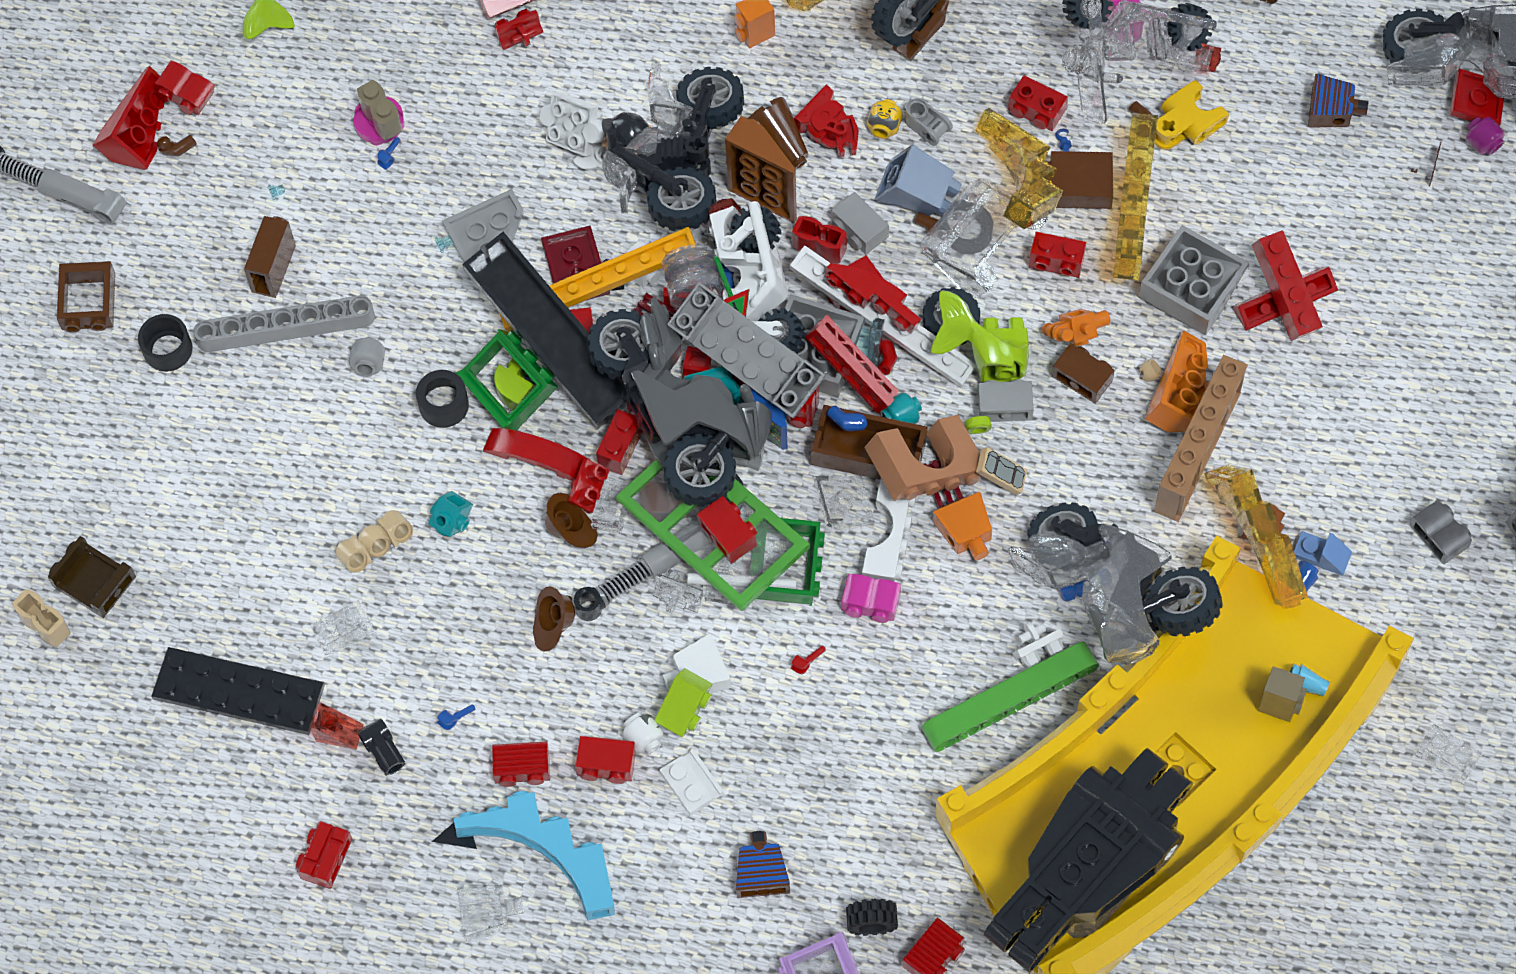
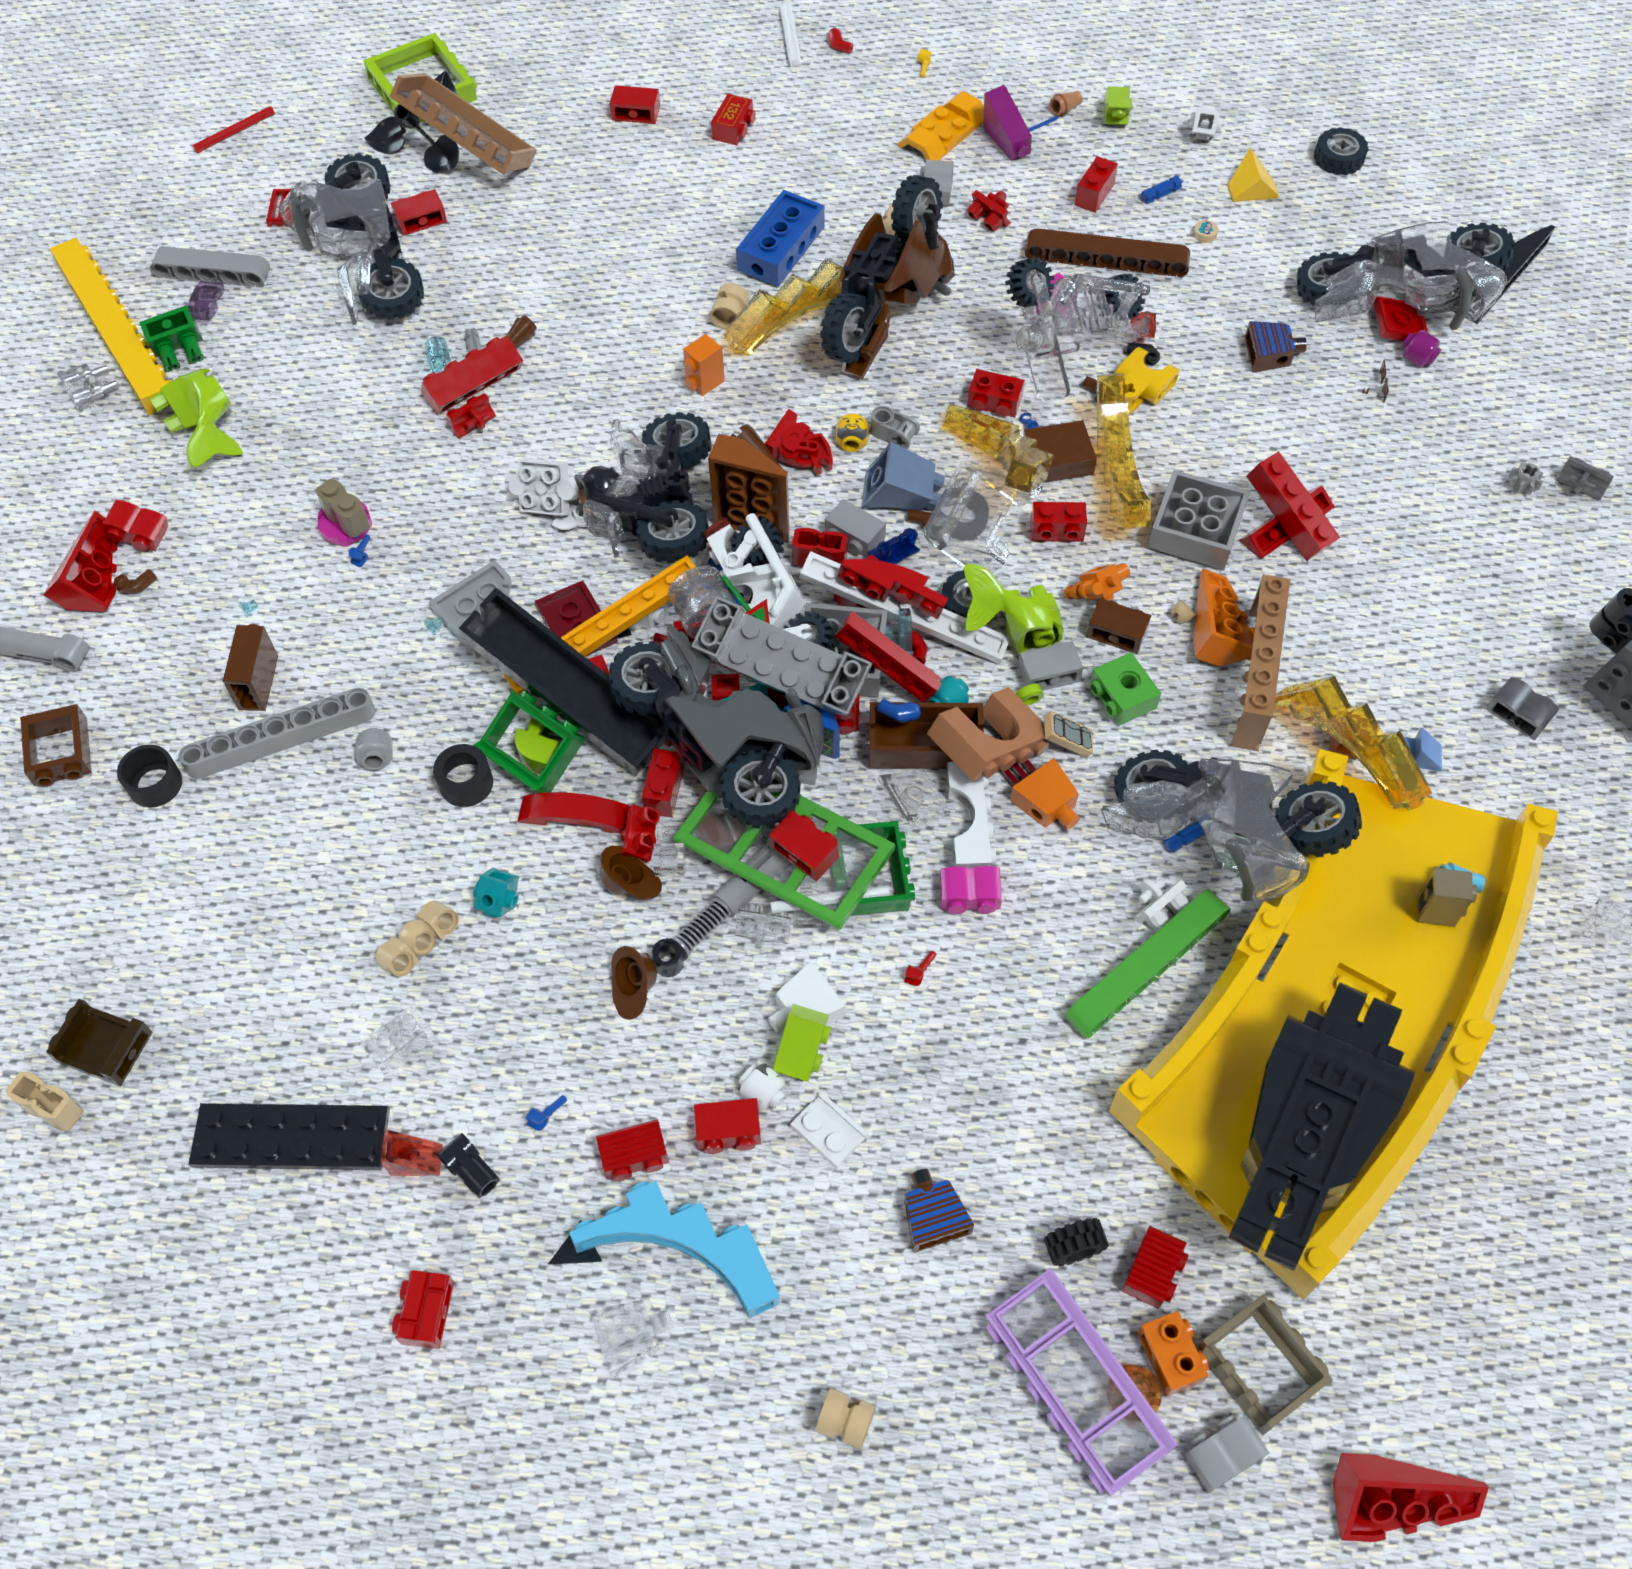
camera: 15 degrees left, 5 degrees down
(893, 252) = (897, 548): none -> clear blue hinge
(1063, 451) = (1122, 703): none -> bright green brick
(1209, 88) = (1153, 354): none -> black arm

